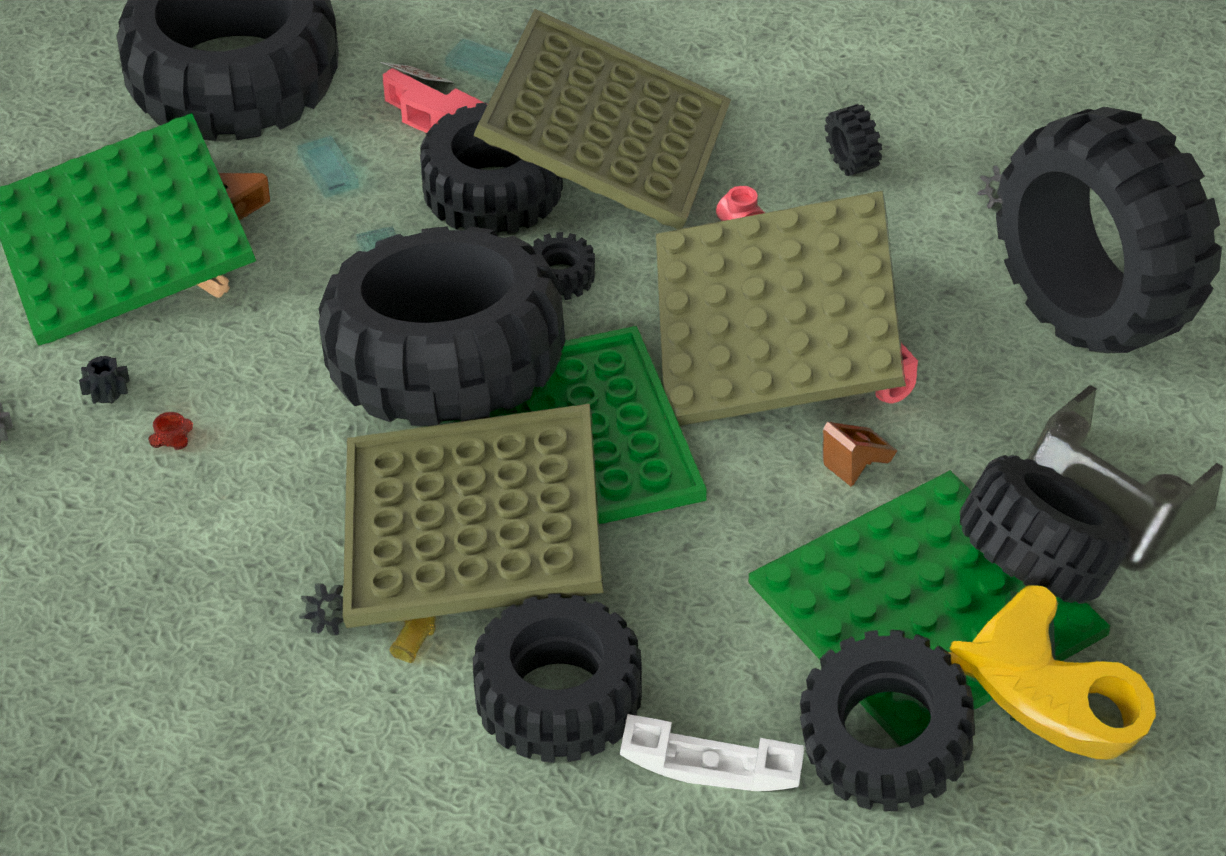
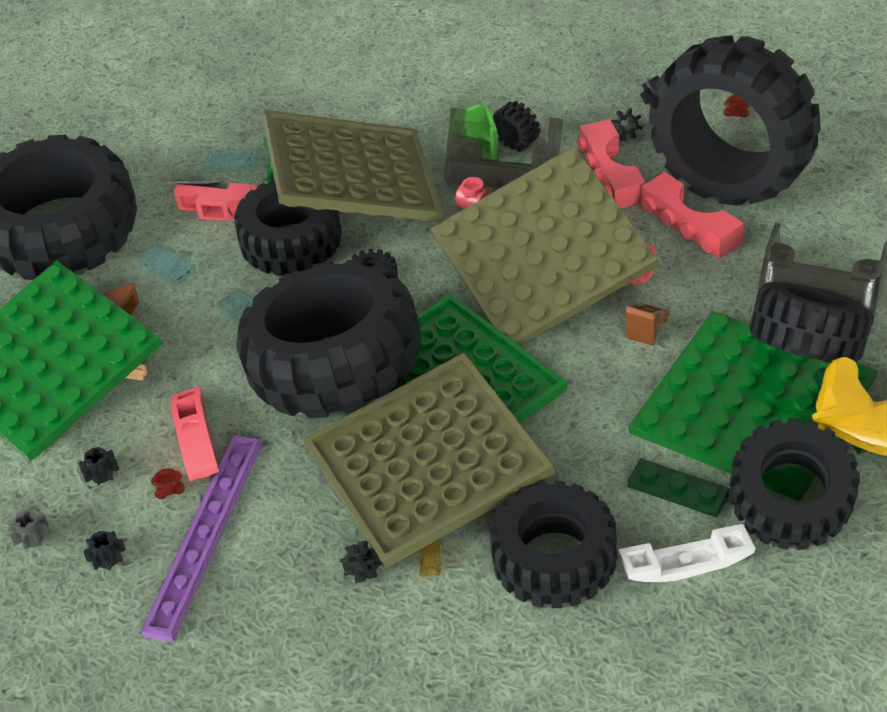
camera: 20 degrees left, 0 degrees up
(52, 480) = (104, 550): none -> black gear
(172, 510) = (201, 539): none -> medium lavender tile
(229, 382) = (194, 433): none -> coral slope
(757, 670) = (678, 487): none -> dark green plate
(768, 154) = (465, 156): none -> clear smoke windscreen
(804, 129) = (481, 126): none -> bright green slope
(945, 260) = (600, 144): none -> coral arch
(1019, 369) = (713, 231): none -> coral arch

